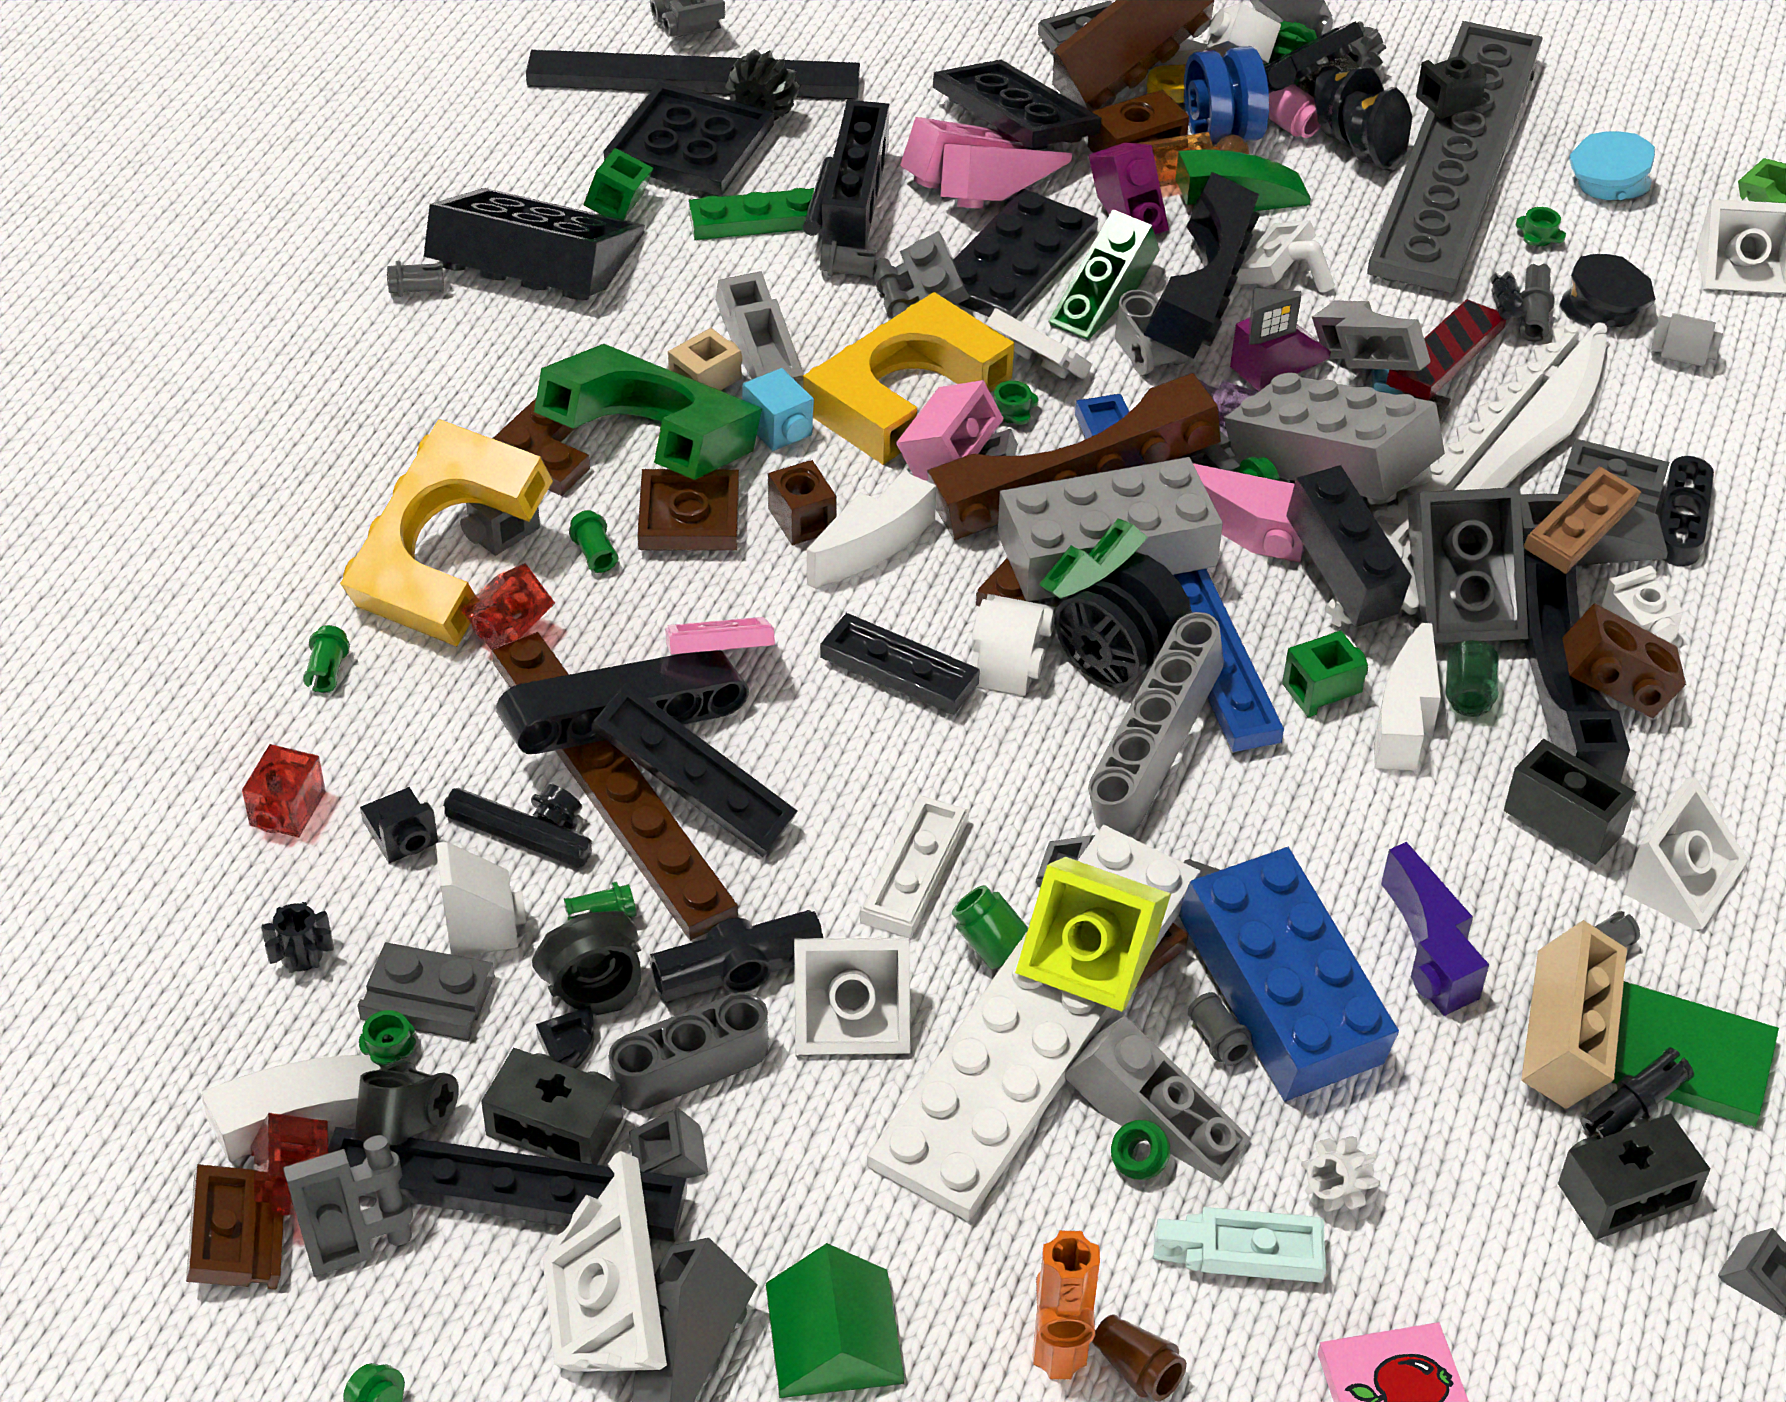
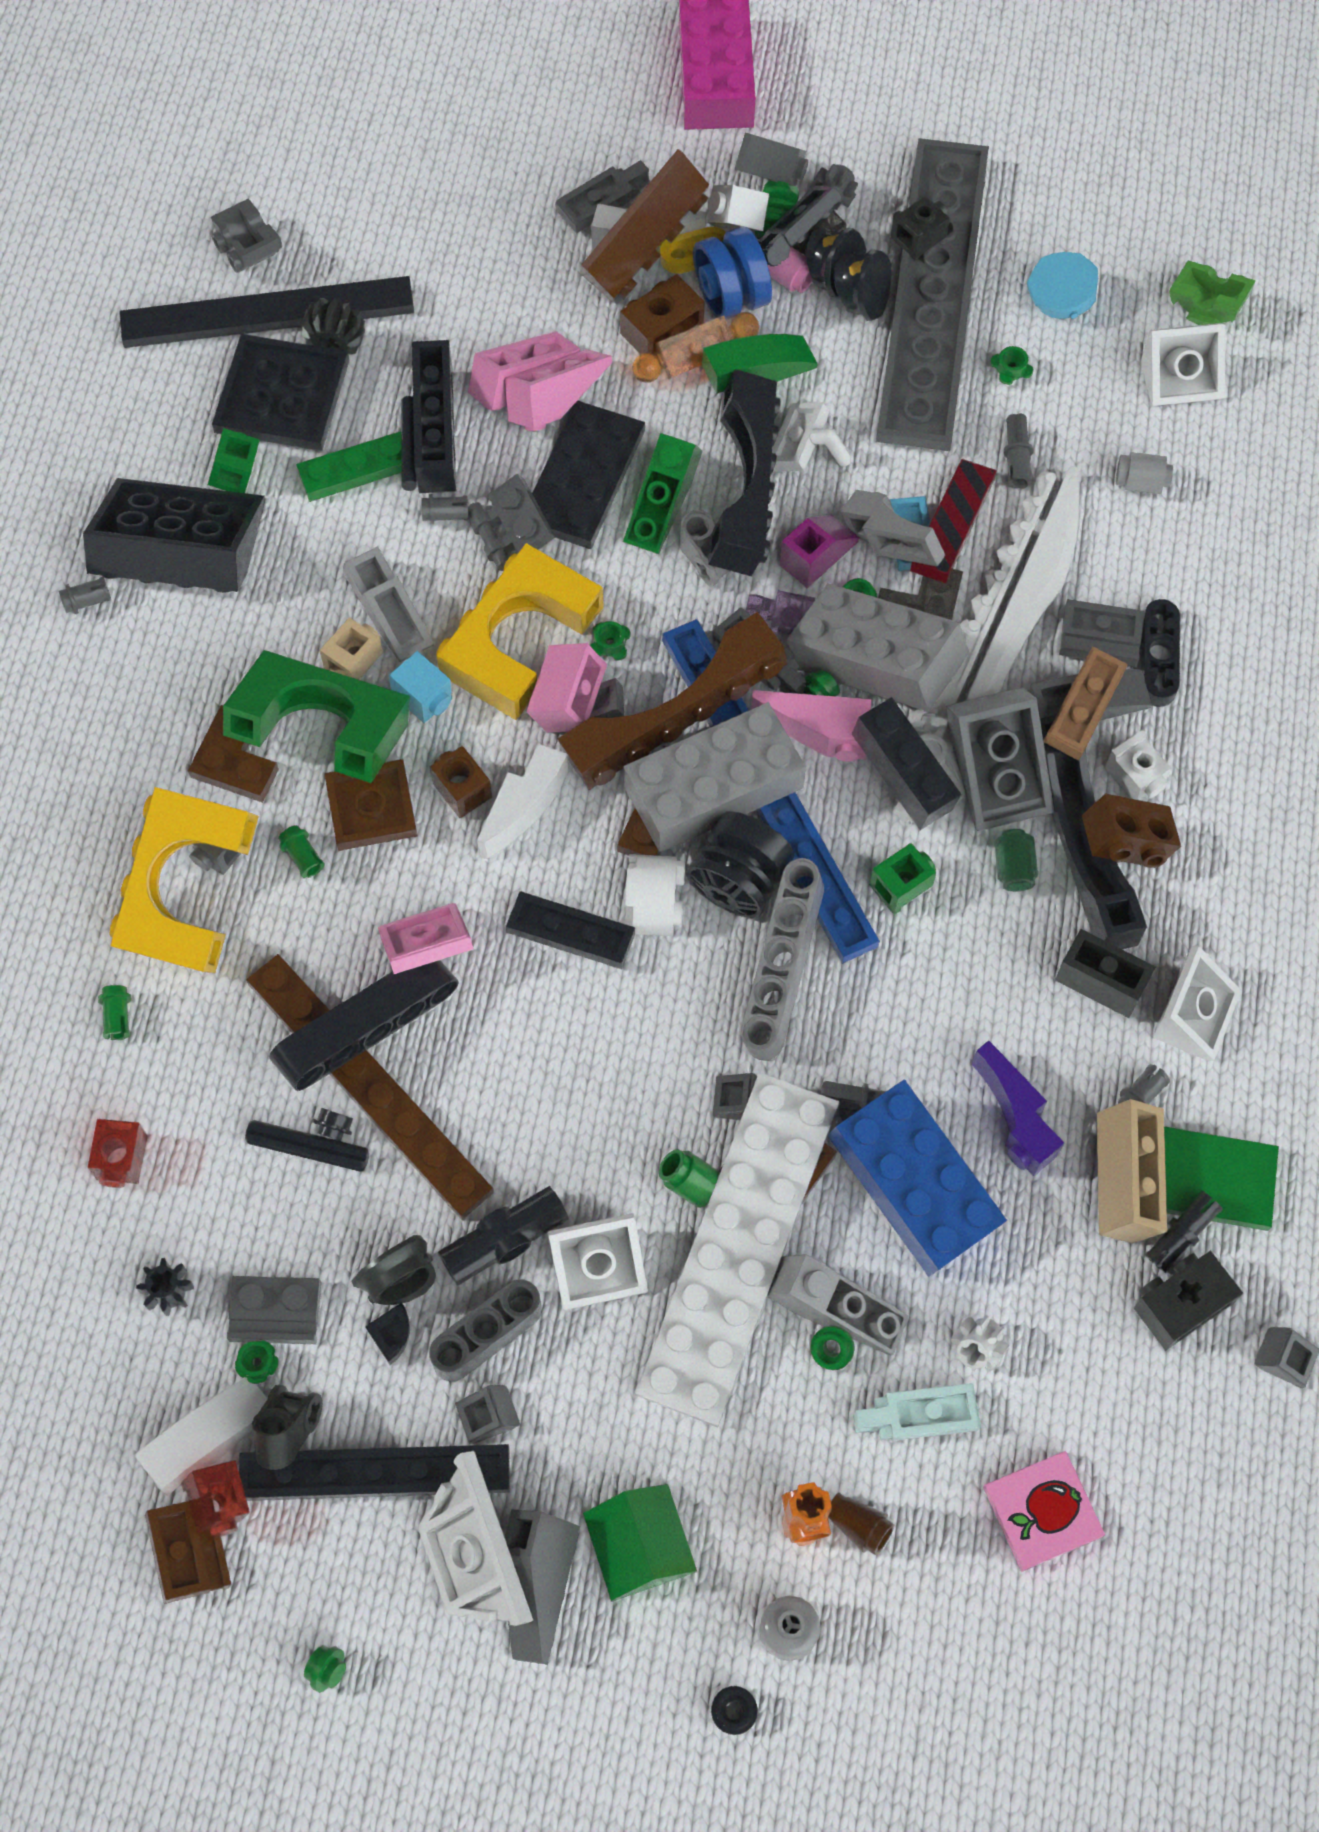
camera: 10 degrees left, 20 degrees up
(329, 1208) = (265, 1532): dark grey plate -> none
(400, 824) = (215, 1161): black bracket -> none
(477, 902) = (297, 1233): white slope -> none
(508, 606) = (263, 935): clear red brick -> none
(552, 1108) = (371, 1408): pearl dark grey brick -> none
(613, 899) = (389, 1210): green pin -> none
(694, 769) = (434, 1077): black plate -> none
(914, 866) = (619, 1120): white tile -> none
(1017, 104) = (554, 307): black plate -> none
(1057, 357) = (622, 578): white plate -> none
(1081, 570) = (704, 837): slope -> none
(1092, 932) = (770, 1184): neon yellow slope -> none
(1129, 183) = (667, 391): magenta slope -> none
(1227, 1039) = (873, 1228): dark grey pin -> none
(1273, 314) = (811, 535): slope -> none
(1408, 703) = (970, 895): white slope -> none
(1507, 295) = (994, 452): black axle -> none
(1607, 291) = (1075, 430): black hat -> none

